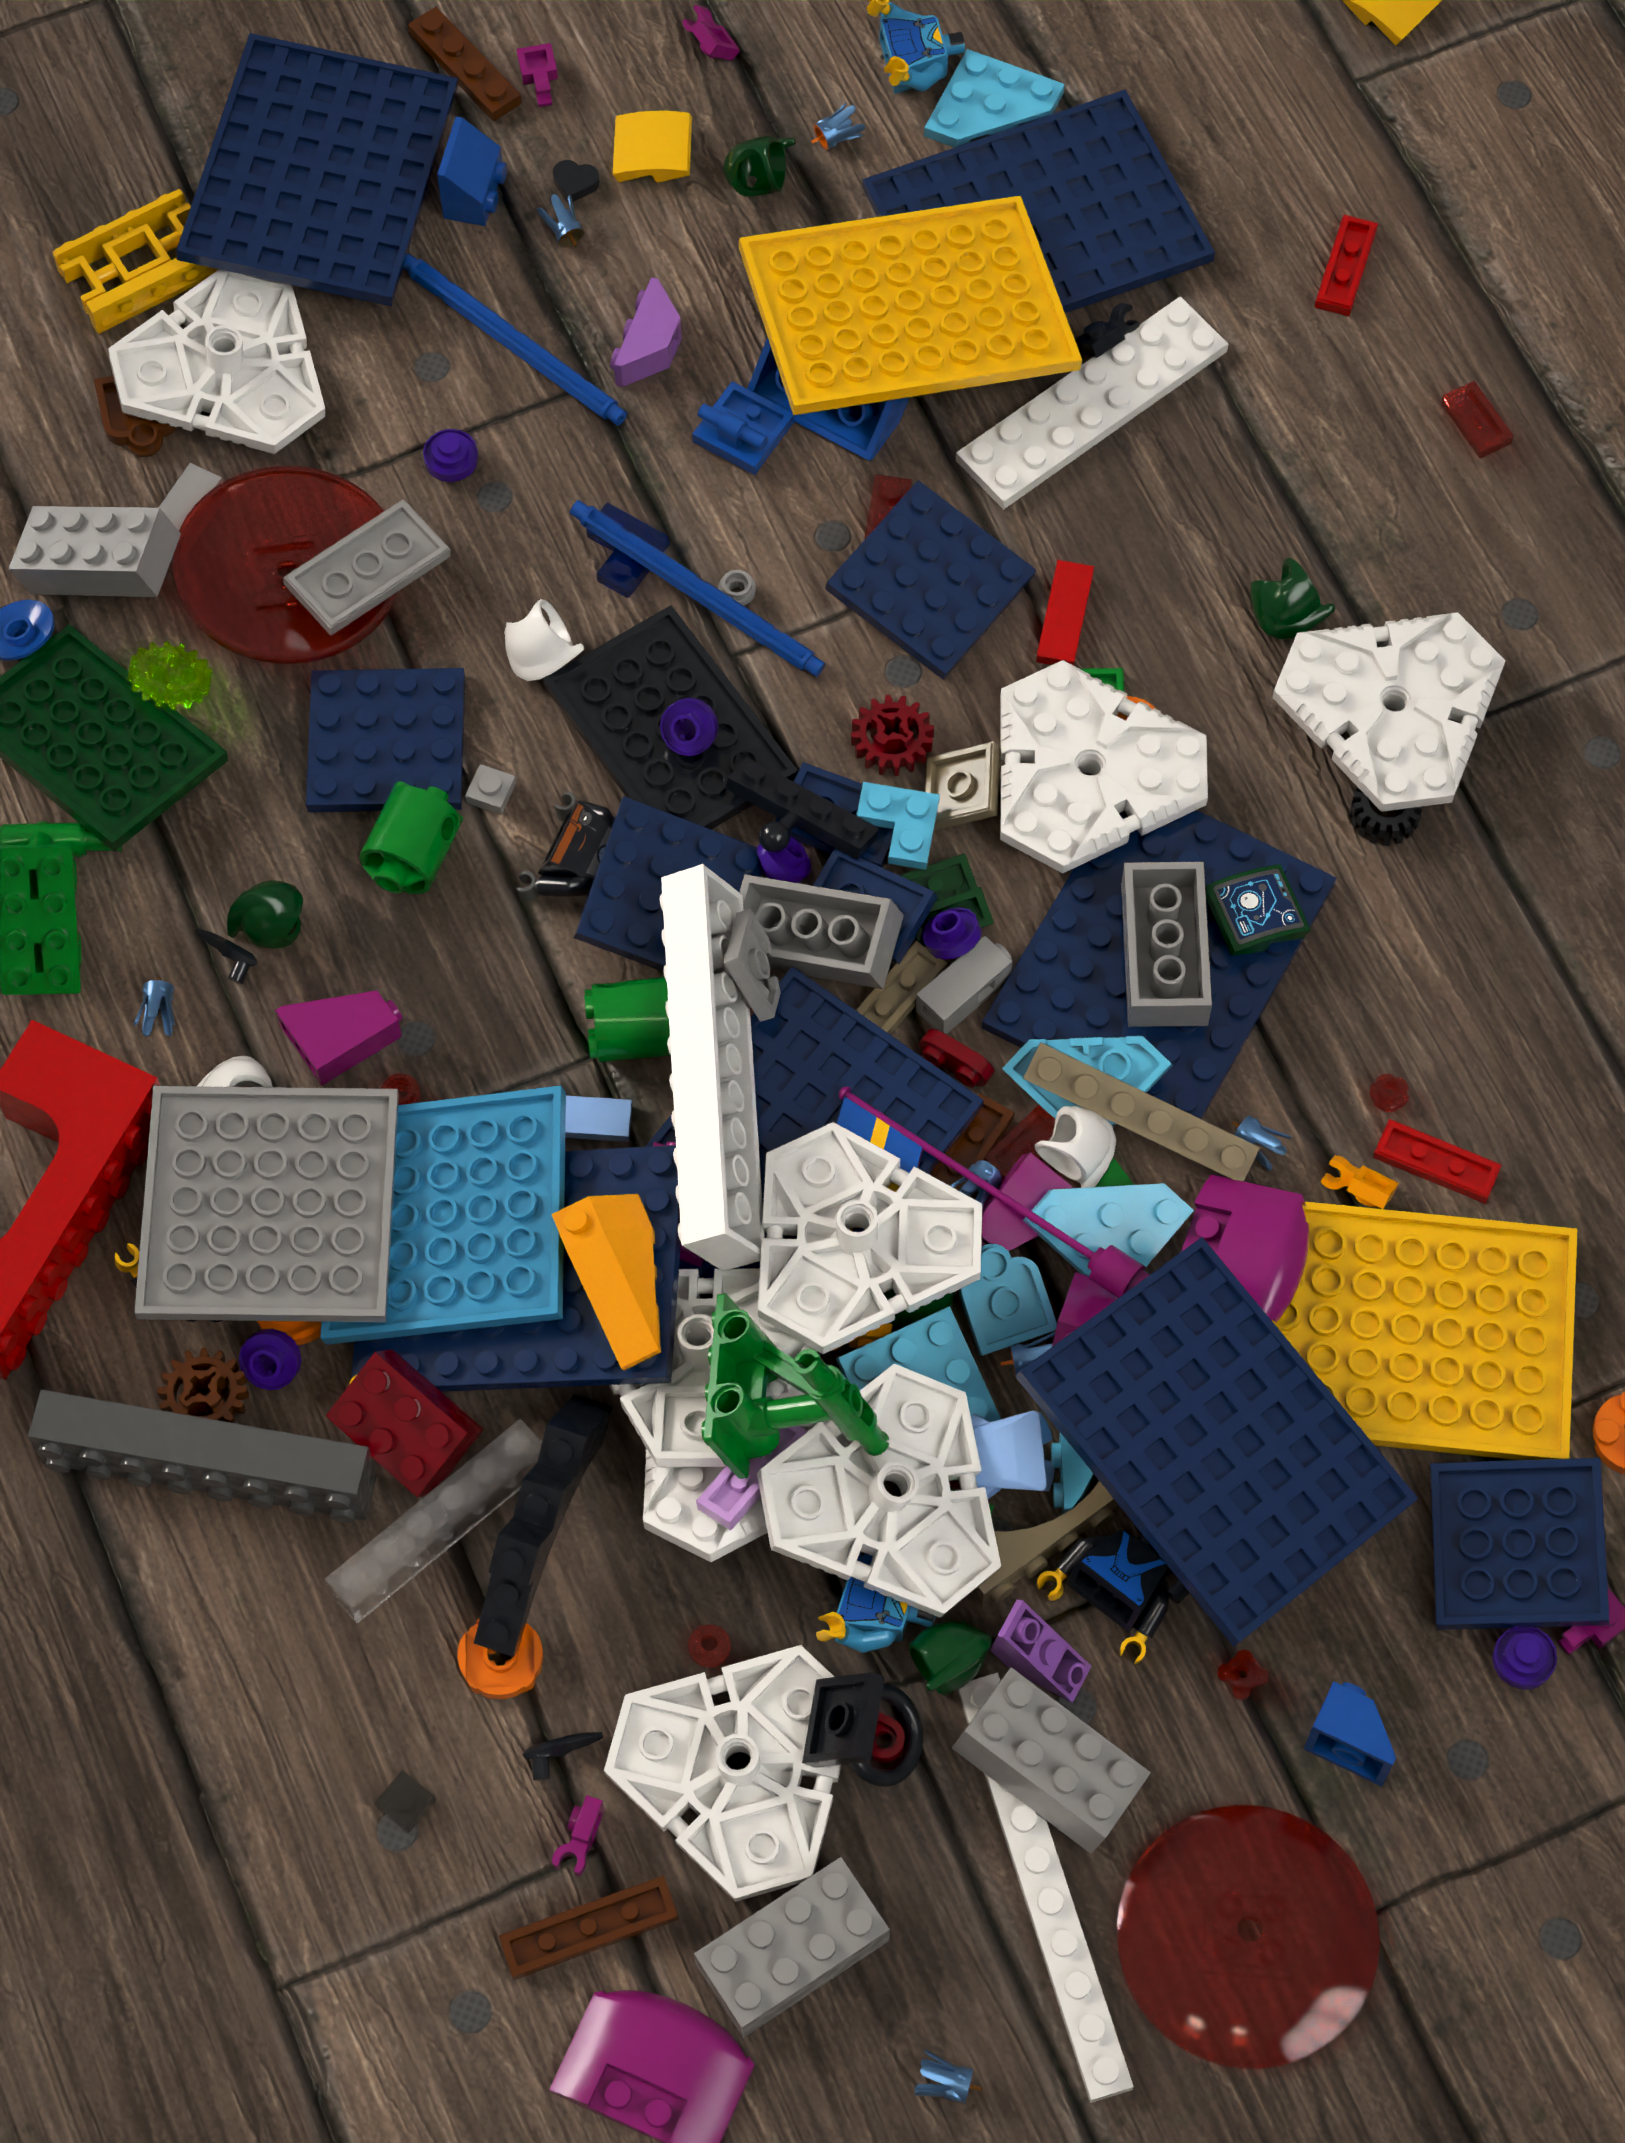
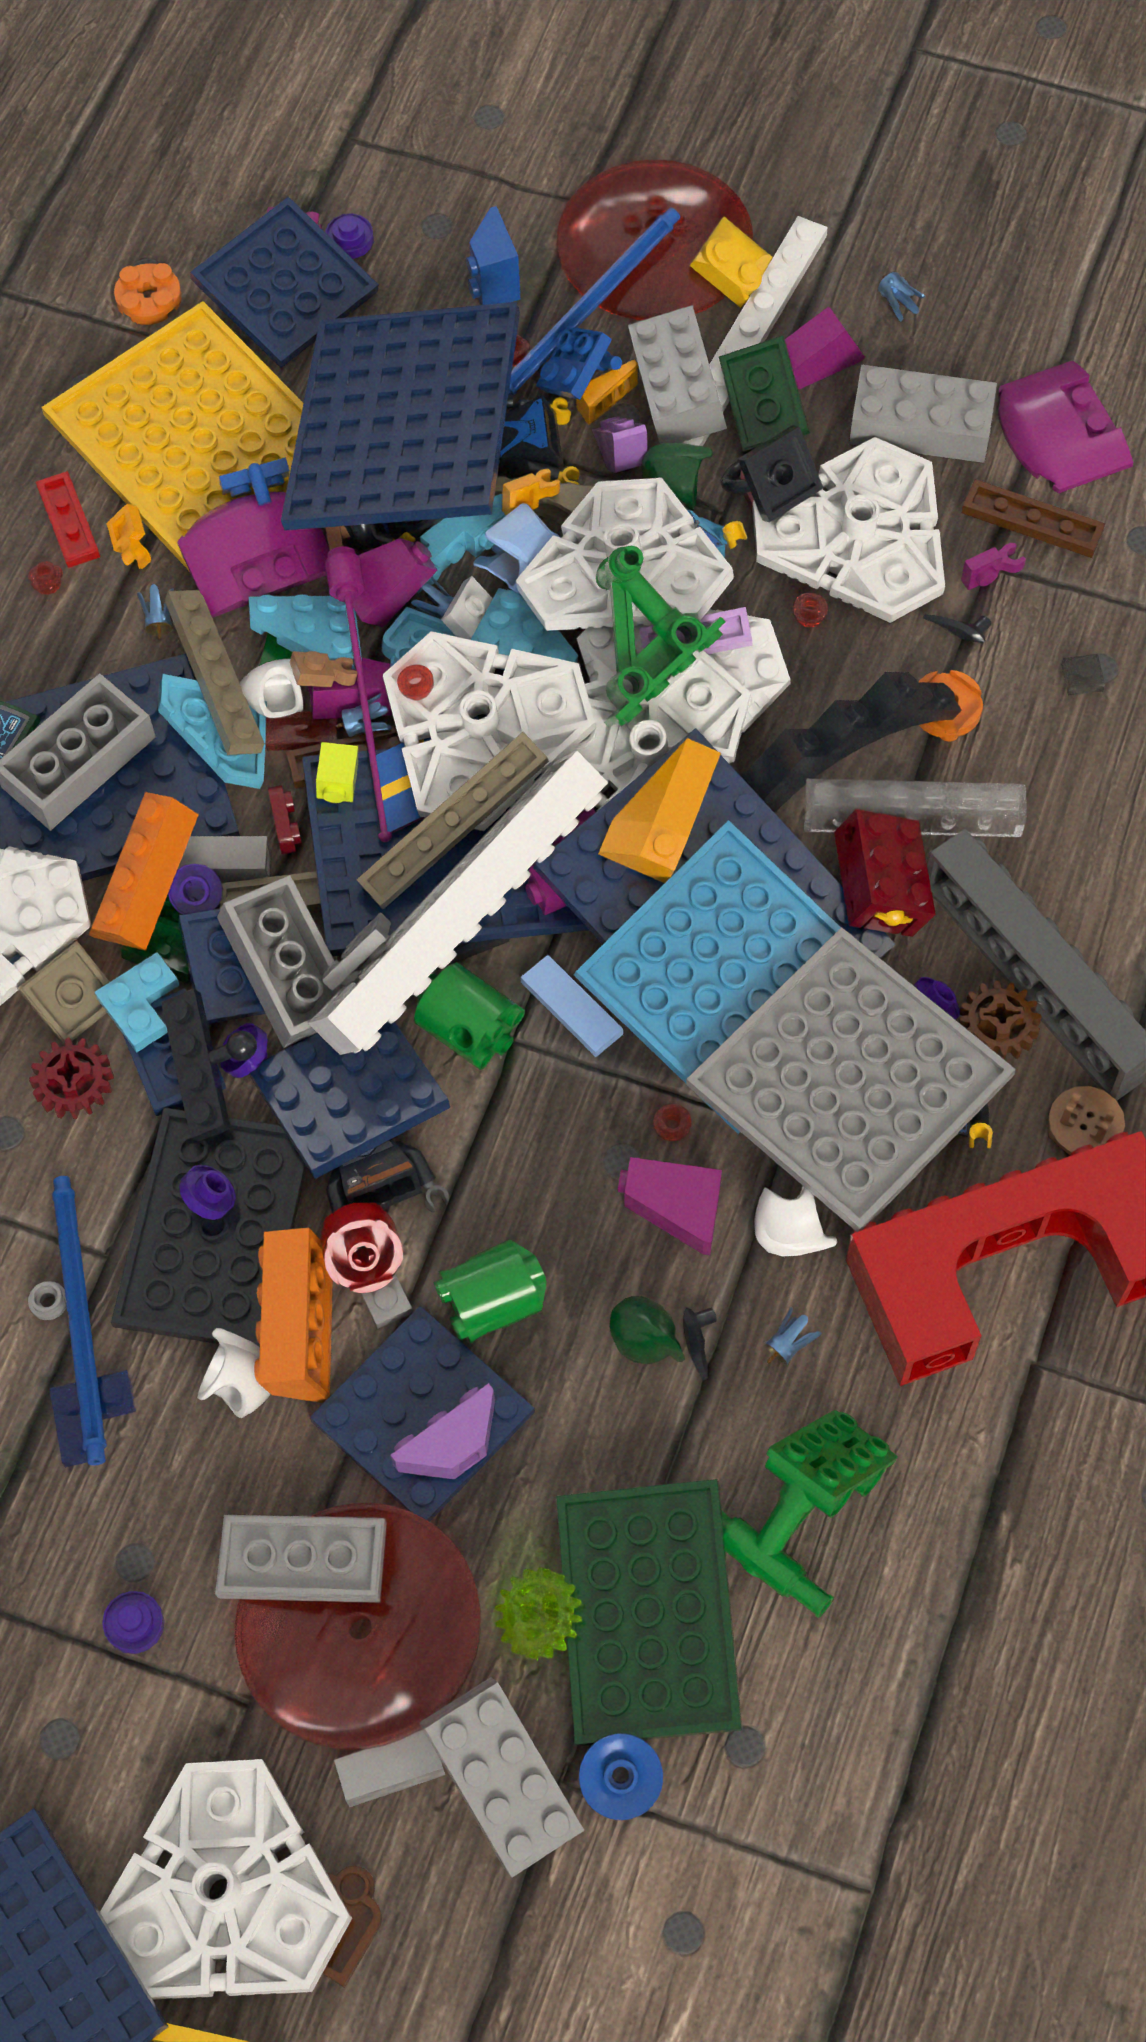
camera: 135 degrees left, 0 degrees up
(81, 1367) = (1071, 1111): none -> medium nougat plate
(336, 716) = (451, 1440): none -> medium lavender slope
(535, 707) = (294, 1316): none -> orange slope
(537, 788) = (359, 1226): none -> red brick
(787, 1129) = (453, 820): none -> dark tan plate
(932, 1098) = (337, 772): none -> neon yellow brick
(940, 1220) = (419, 690): none -> clear red plate
(955, 1821) = (763, 392): none -> dark green tile
(955, 1922) = (821, 349): none -> magenta slope
(996, 1360) = (467, 609): none -> white plate
(1001, 900) = (144, 871): none -> orange slope
(1045, 1165) = (317, 670): none -> medium nougat plate
(1055, 1497) = (528, 490): none -> light orange plate
(1112, 1687) = (607, 391): none -> light orange slope
(1136, 1960) = (732, 262): none -> yellow slope
(1157, 1691) = (575, 361): none -> blue plate
(1218, 1776) = (593, 297): none -> blue piece
(1311, 1306) = (256, 476): none -> blue plate

